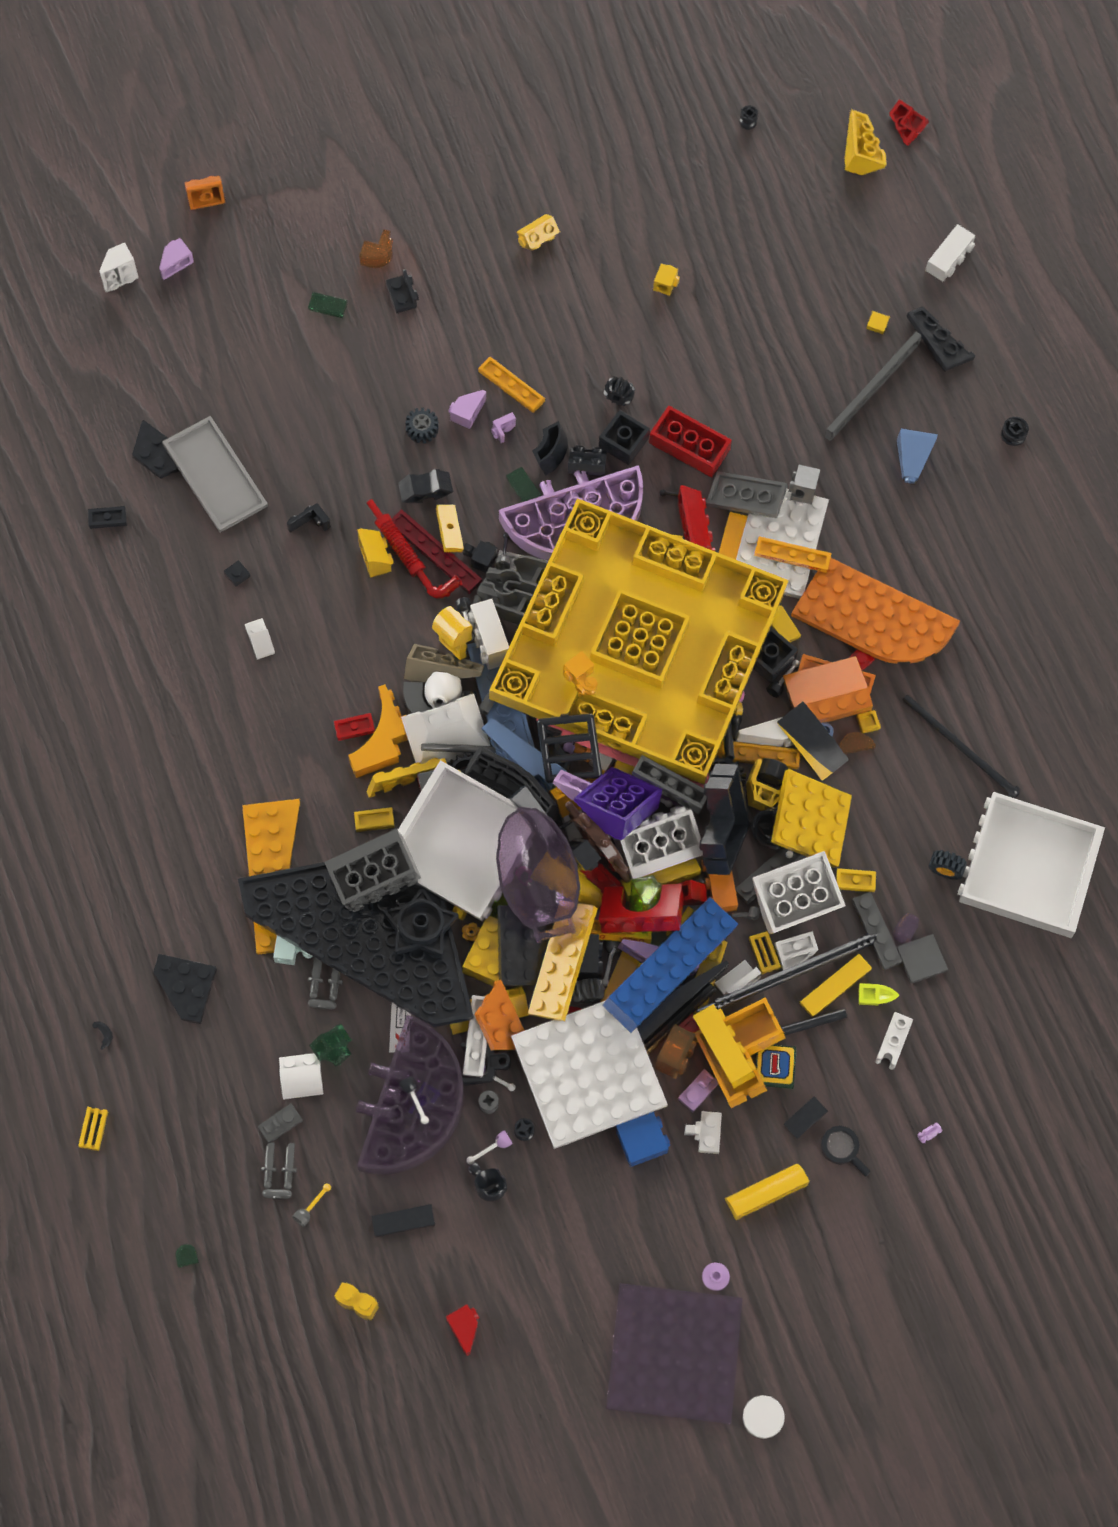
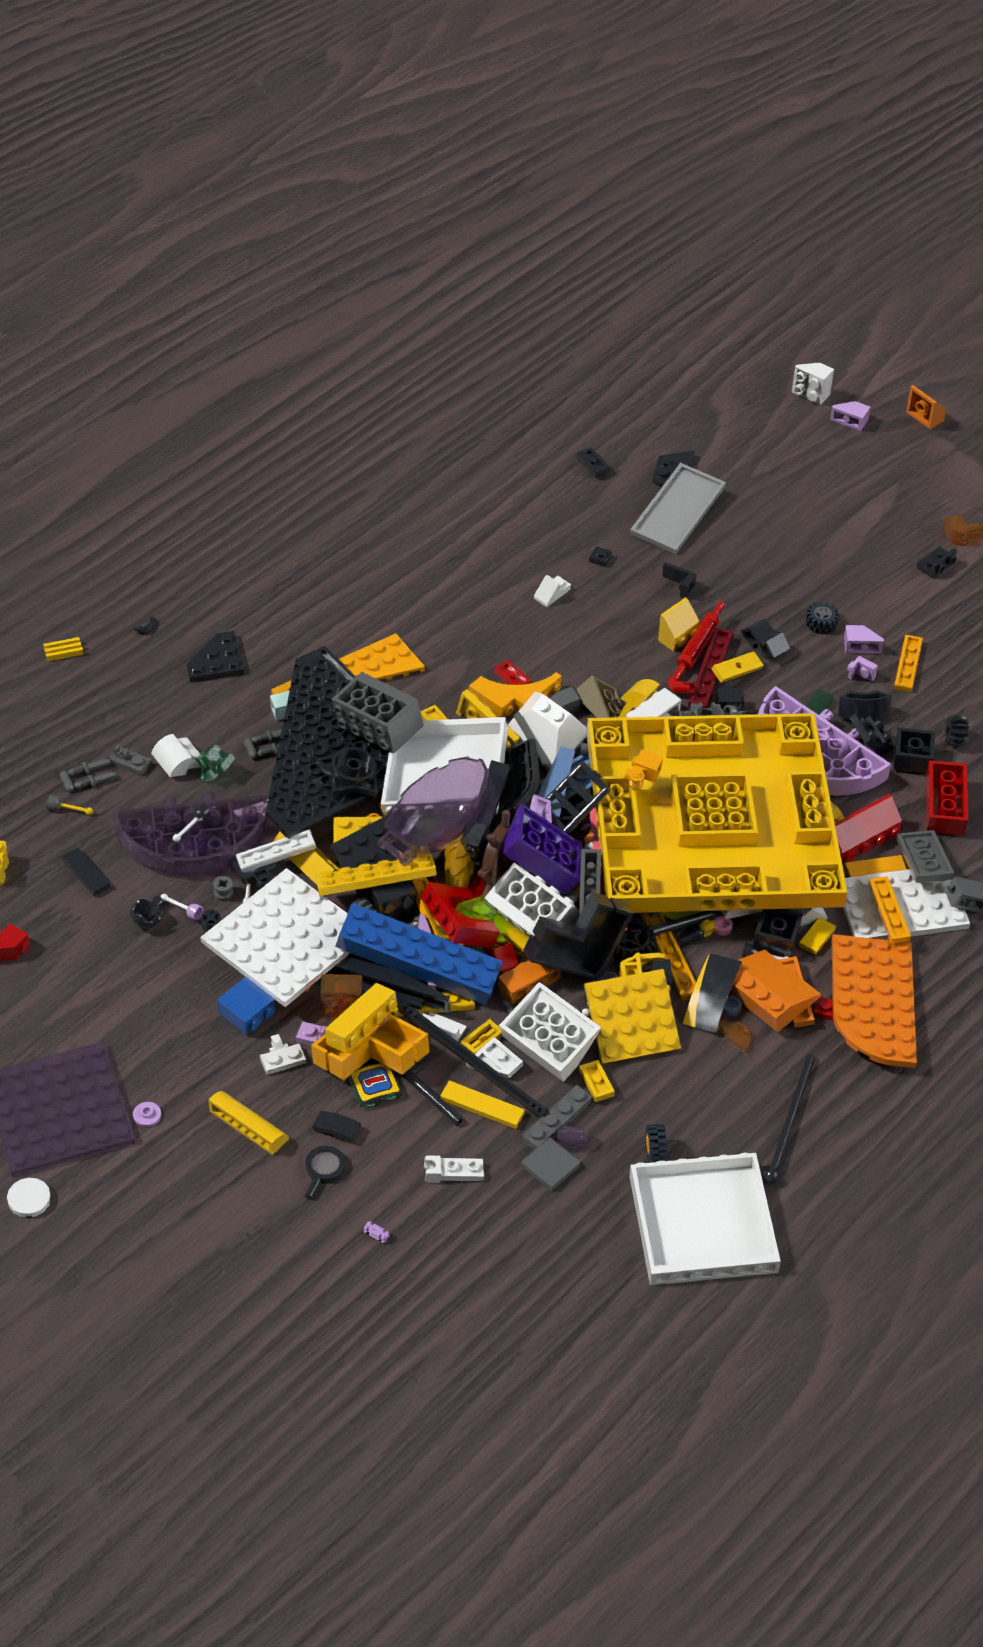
camera: 65 degrees right, 20 degrees down
(327, 305) = (887, 521): clear green tile -> none
(442, 689) = (581, 709): white piece -> none
(498, 1018) = (299, 854): orange wing -> none
(766, 733) = (693, 952): white slope -> none
(868, 721) = (765, 1036): yellow tile -> none
(875, 994) = (490, 1135): neon yellow plate -> none

